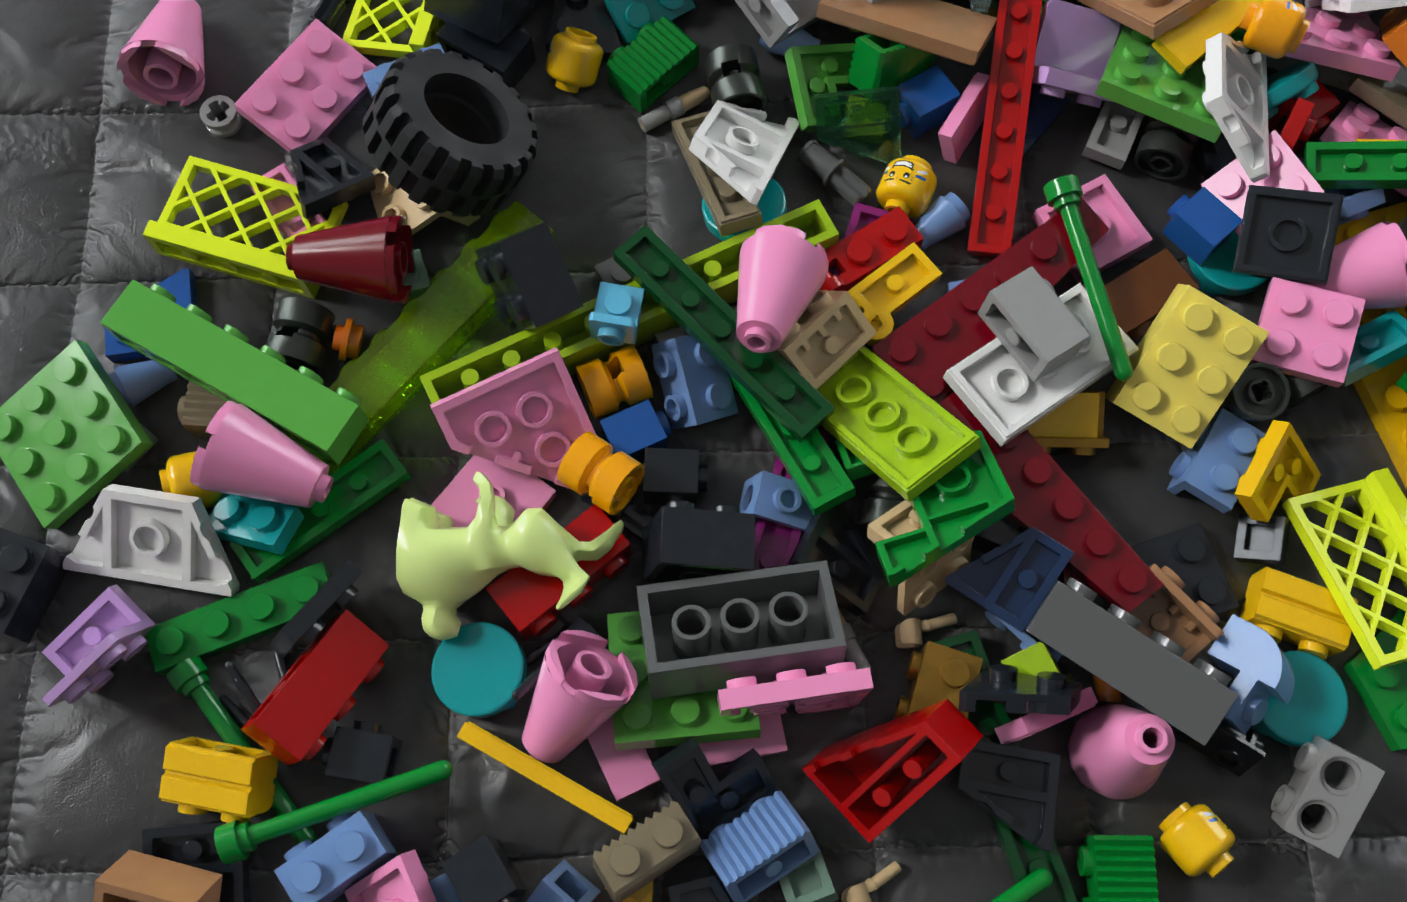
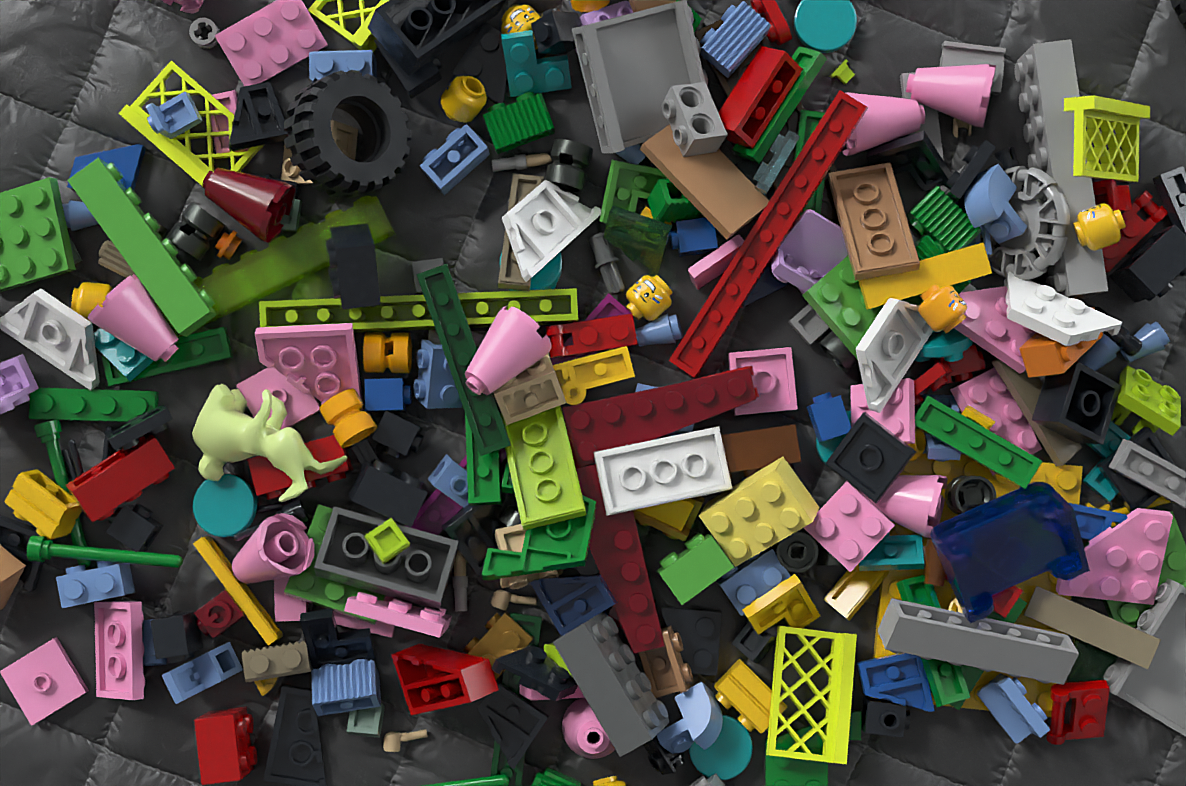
camera: 25 degrees right, 15 degrees up
(218, 207) = (174, 116): none -> medium blue bracket
(535, 821) = (219, 615): none -> dark red brick
(594, 125) = (454, 158): none -> medium blue brick
(616, 314) = (402, 316): medium azure bracket -> none
(732, 596) = (387, 540): none -> lime tile
(1033, 323) = (664, 447): light grey brick -> none
(1064, 195) = (733, 369): green piece -> none
(1141, 472) = (694, 567): none -> bright green brick
(1344, 421) = (854, 590): none -> yellow tile

